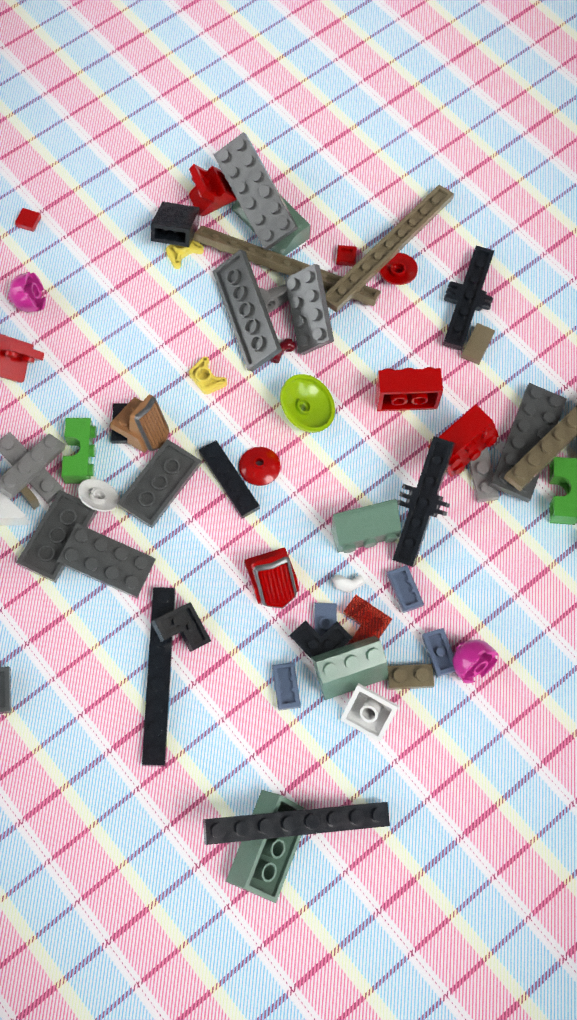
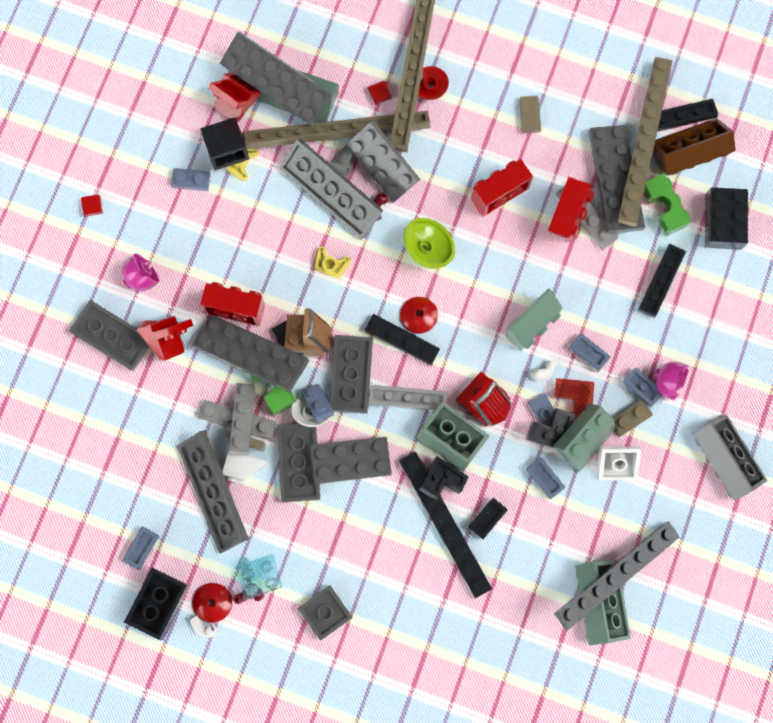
camera: 30 degrees left, 10 degrees up
(77, 411) = (250, 353): none -> dark grey plate
(90, 360) = (233, 303): none -> red brick
(110, 490) = (317, 402): none -> sand blue plate
(128, 242) = (191, 179): none -> sand blue plate
(199, 534) = (406, 397): none -> light grey plate
(204, 692) = (488, 518): none -> black plate
(218, 592) = (452, 436): none -> sand green slope
(423, 501) = (568, 276): black hinge -> none
(468, 297) = (500, 77): black hinge -> none
(490, 773) = (730, 457): none -> slope
(519, 560) = (661, 280): none -> black plate

